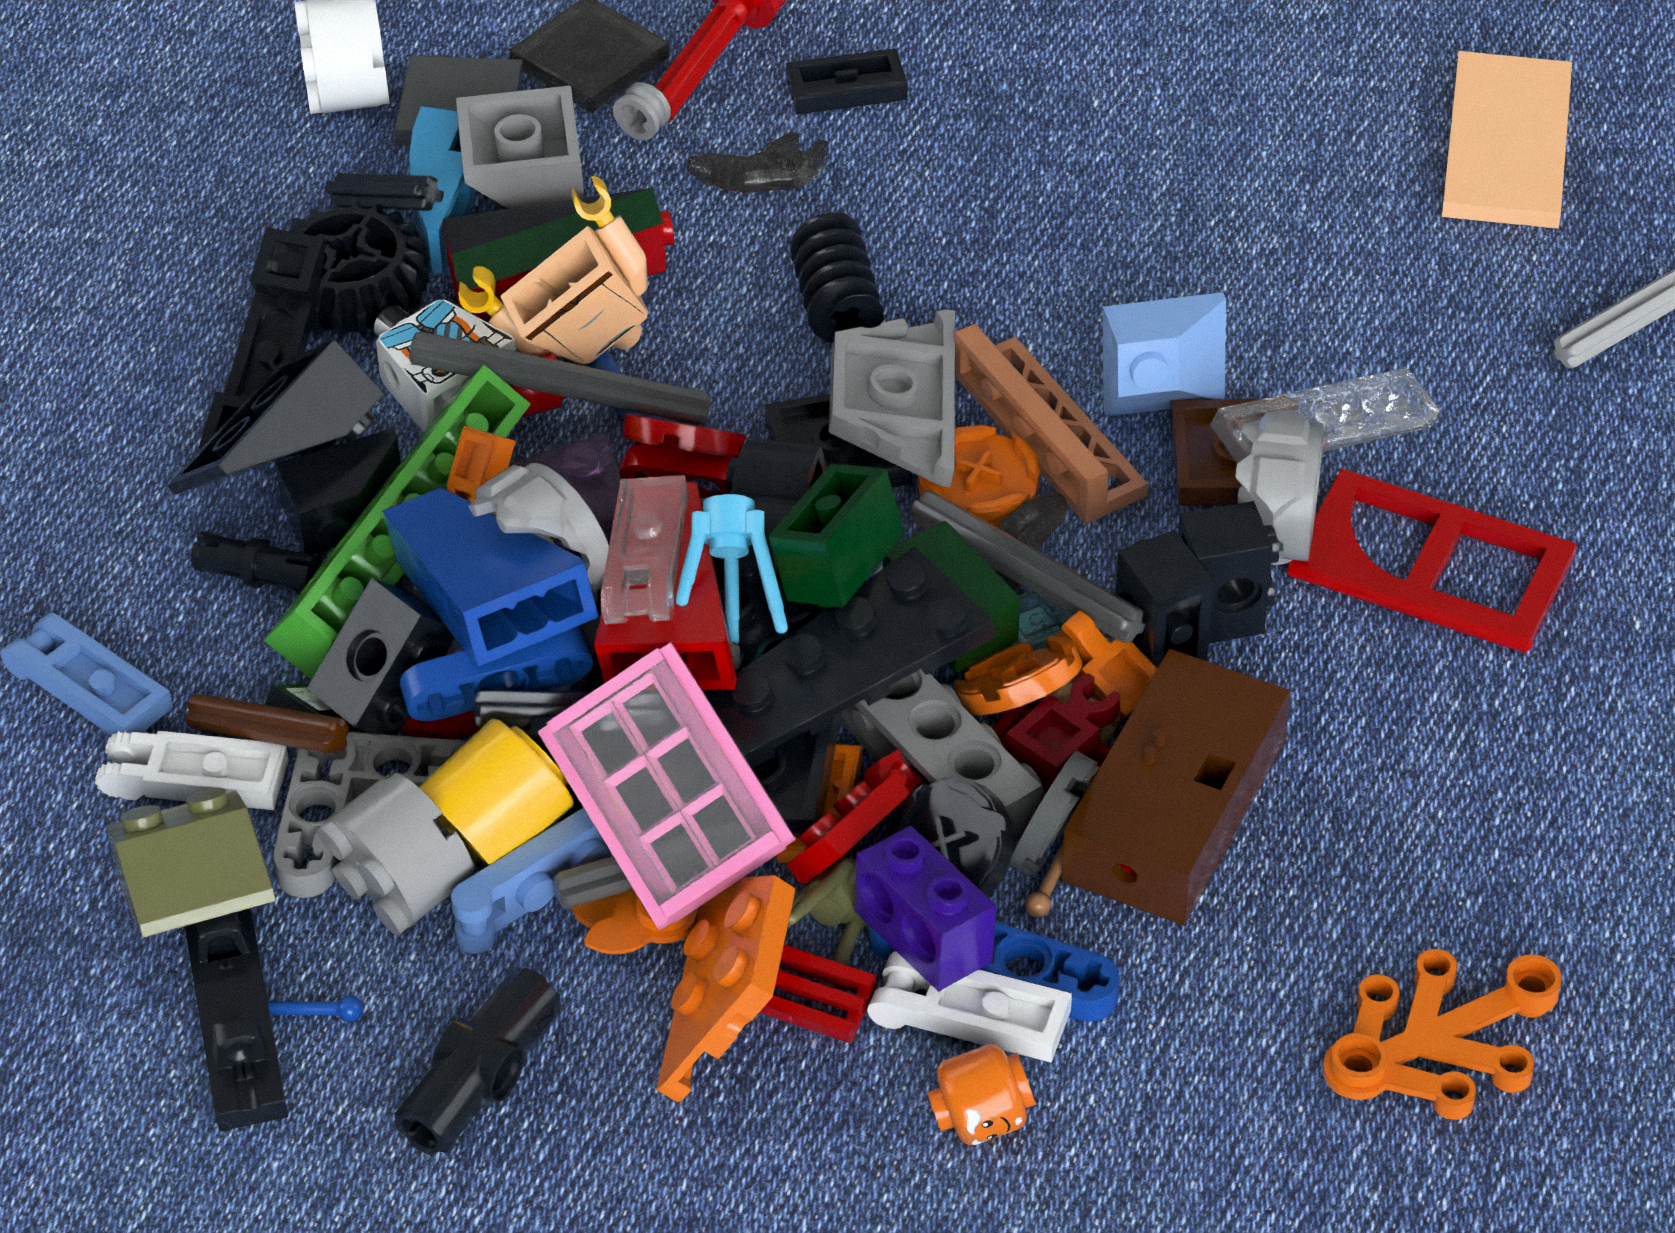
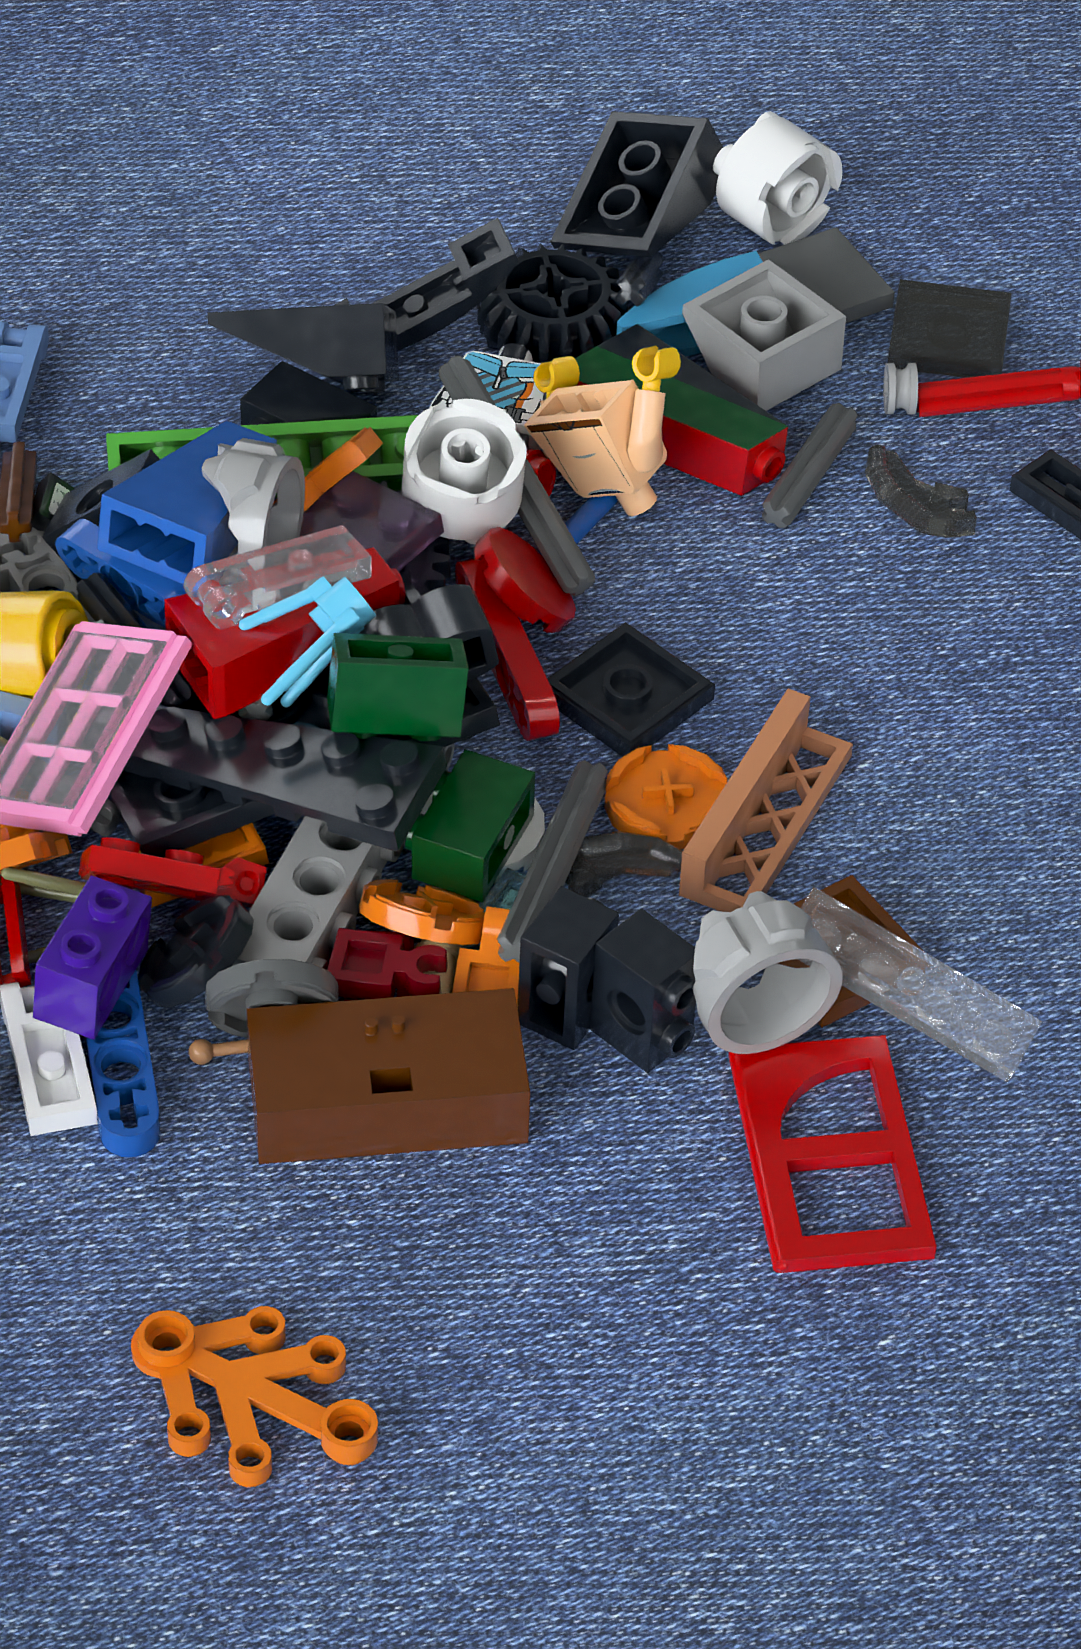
camera: 55 degrees right, 0 degrees up
(254, 561) = (192, 403): black pin -> none
(269, 138) = (641, 184): none -> black slope
(565, 387) = (465, 467): none -> white brick
(688, 223) = (809, 465): none -> dark grey axle
(835, 275) = (803, 592): black piece -> none
(898, 393) = (694, 689): light grey wing -> none
(1163, 353) = (873, 830): light blue slope -> none

